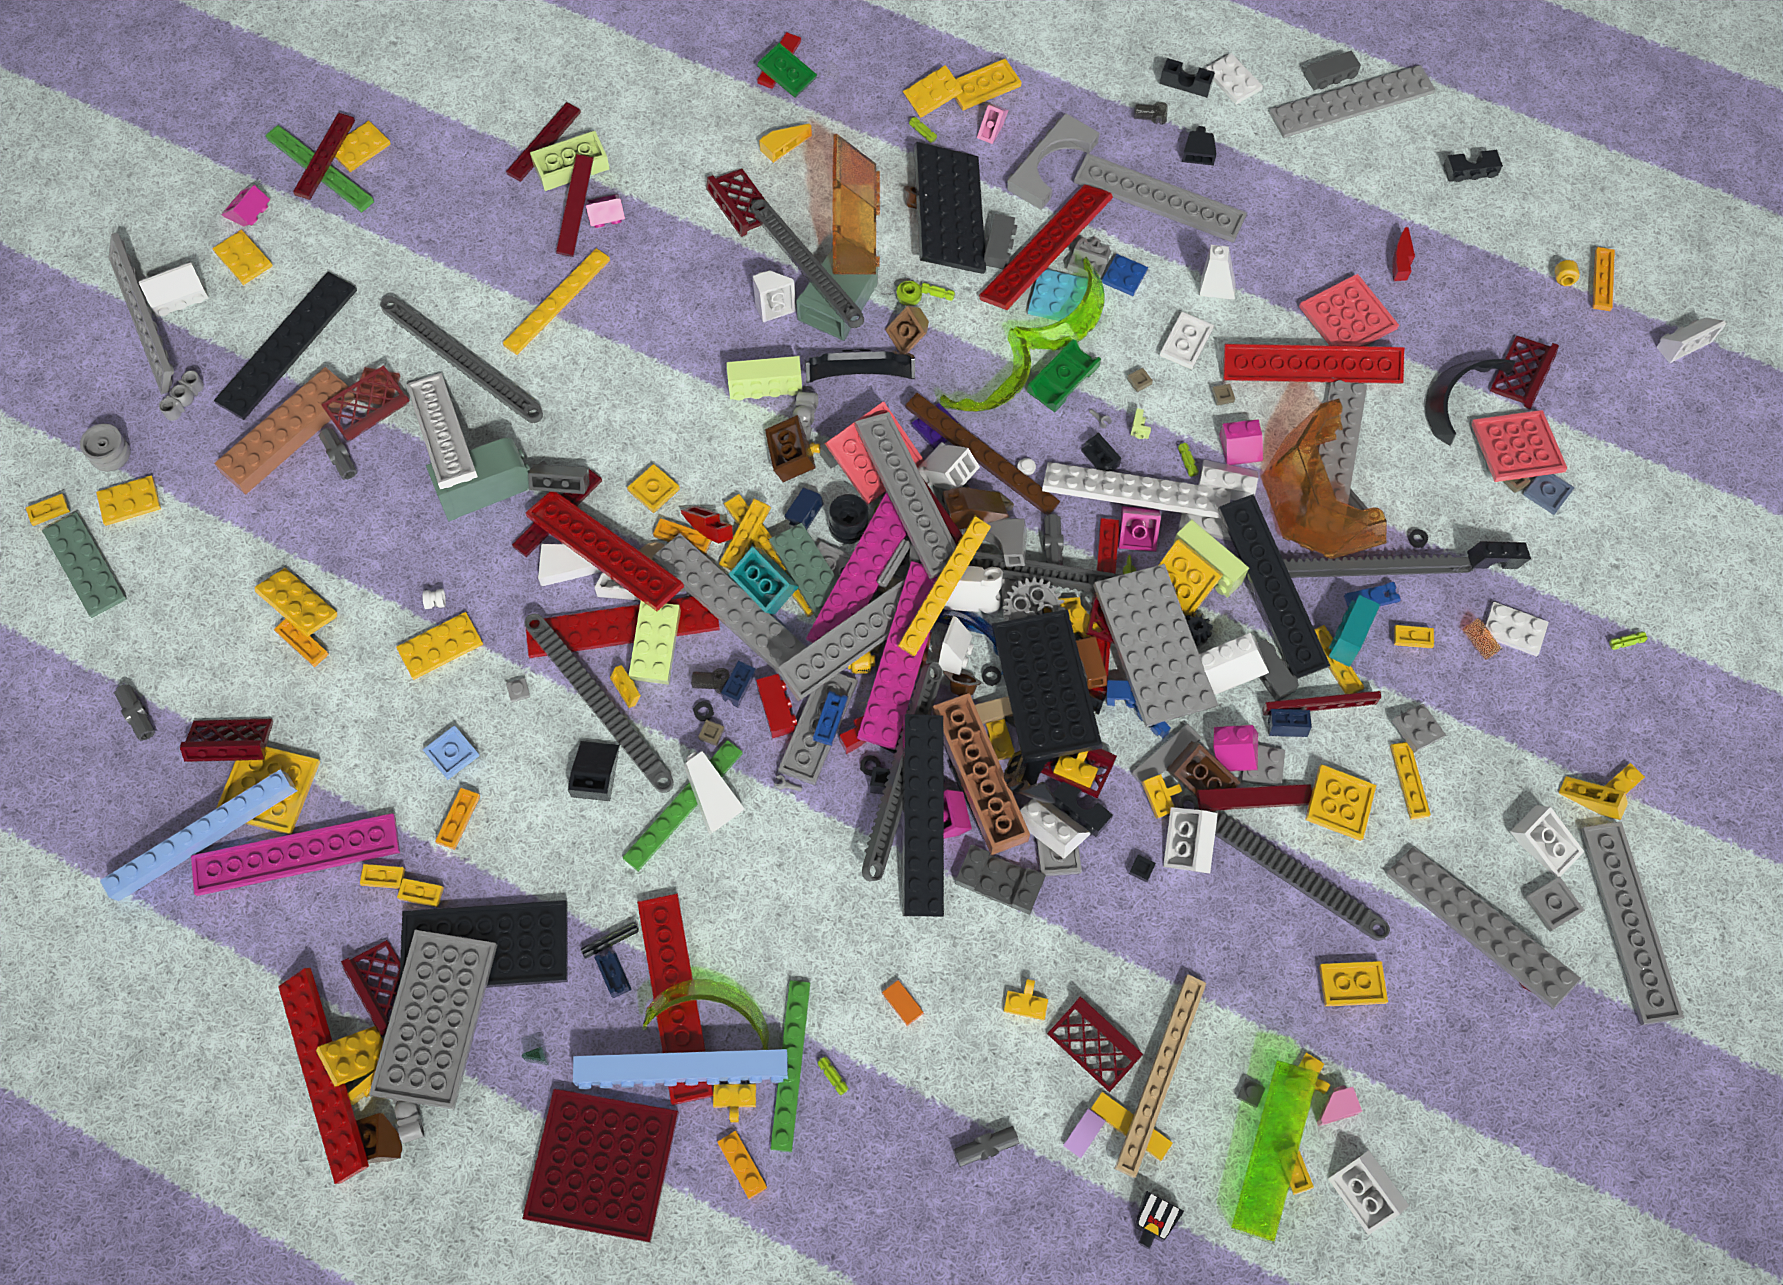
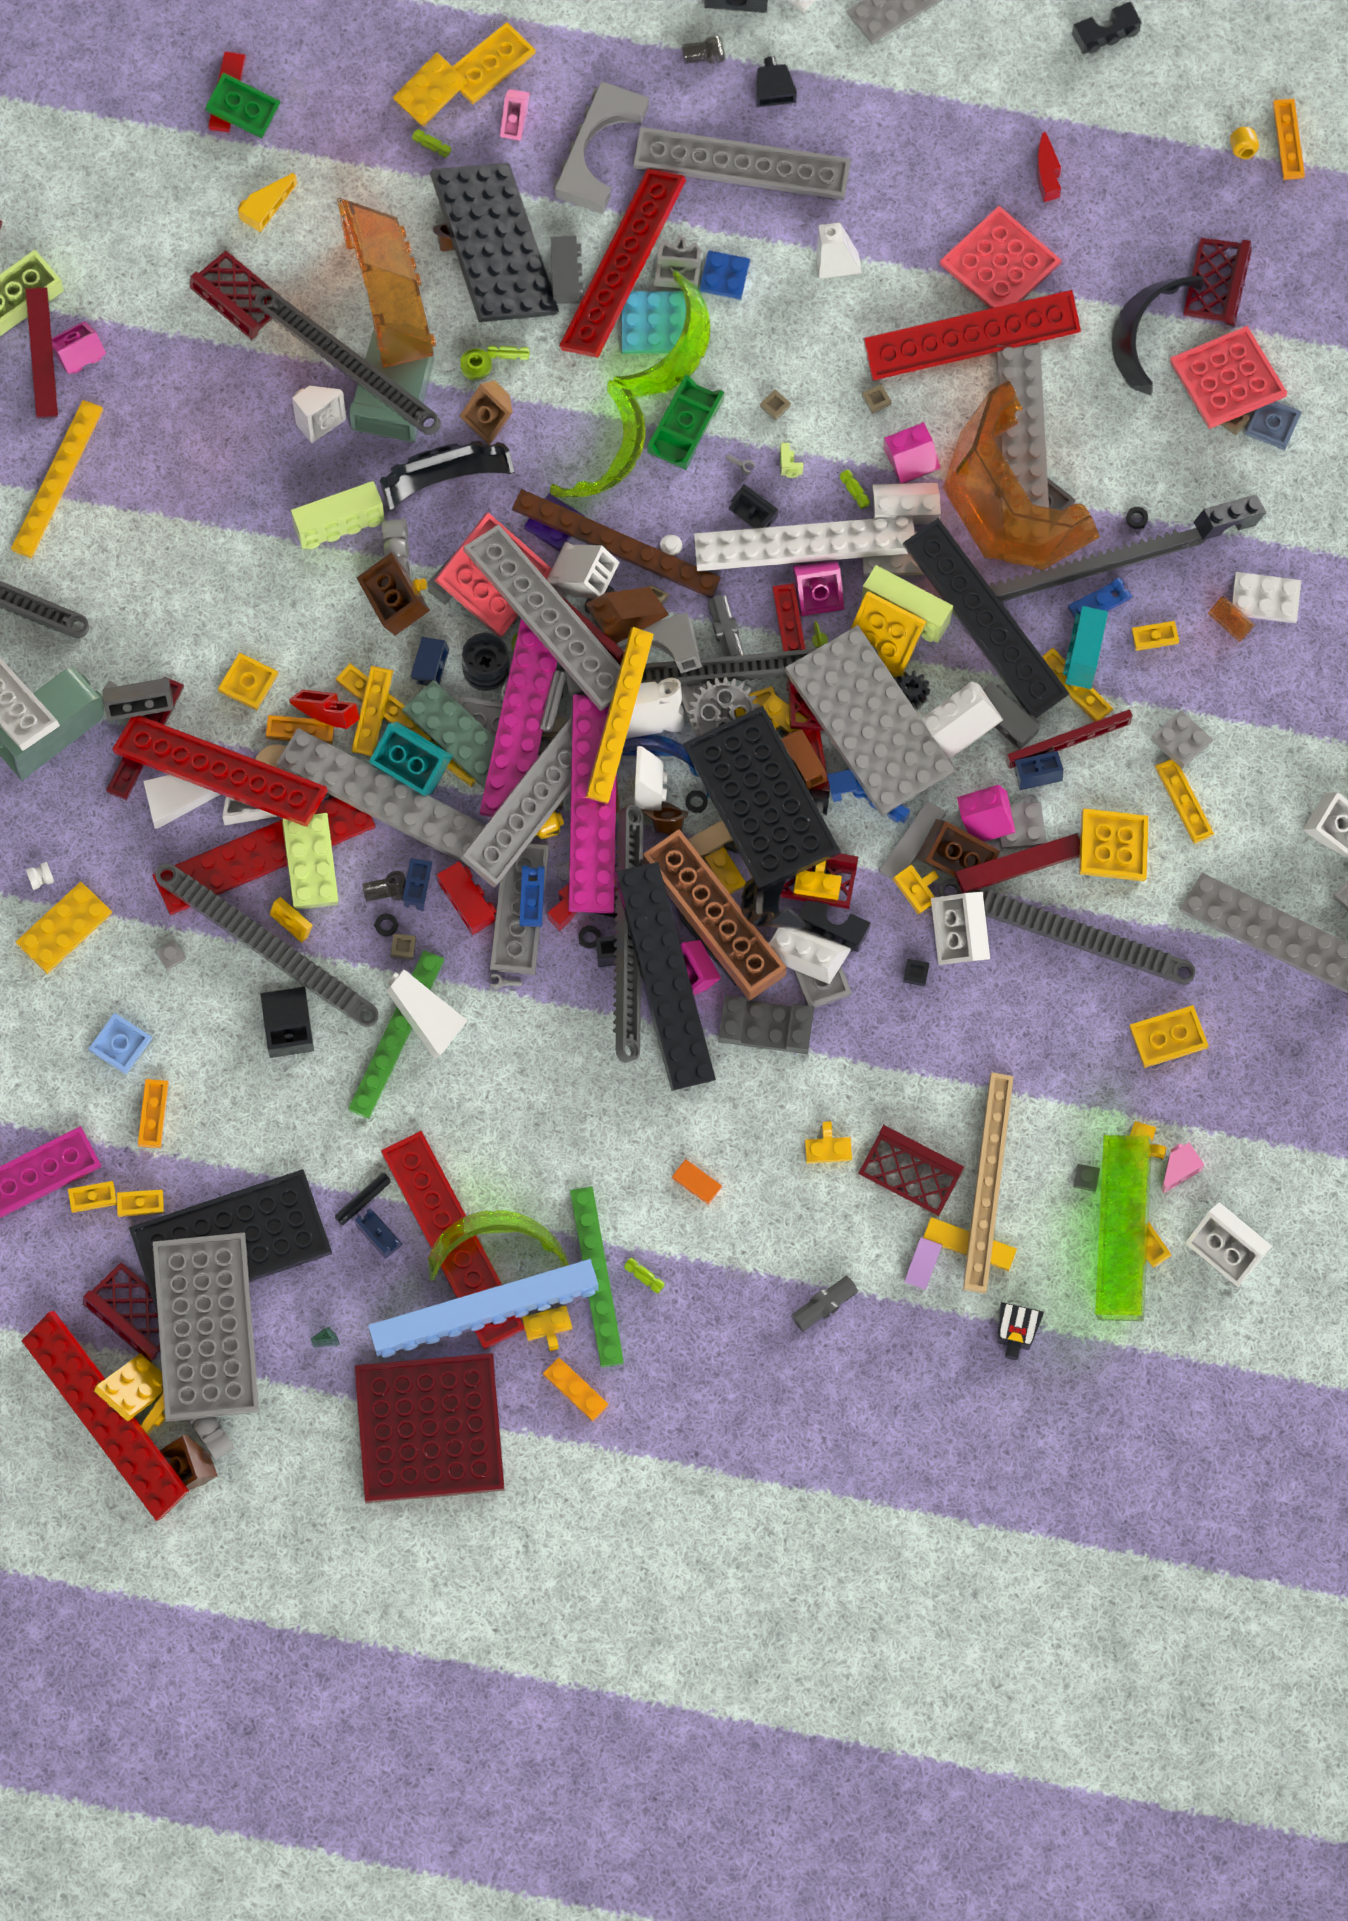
camera: 15 degrees left, 5 degrees up
(1186, 340) = (818, 341): white plate -> none

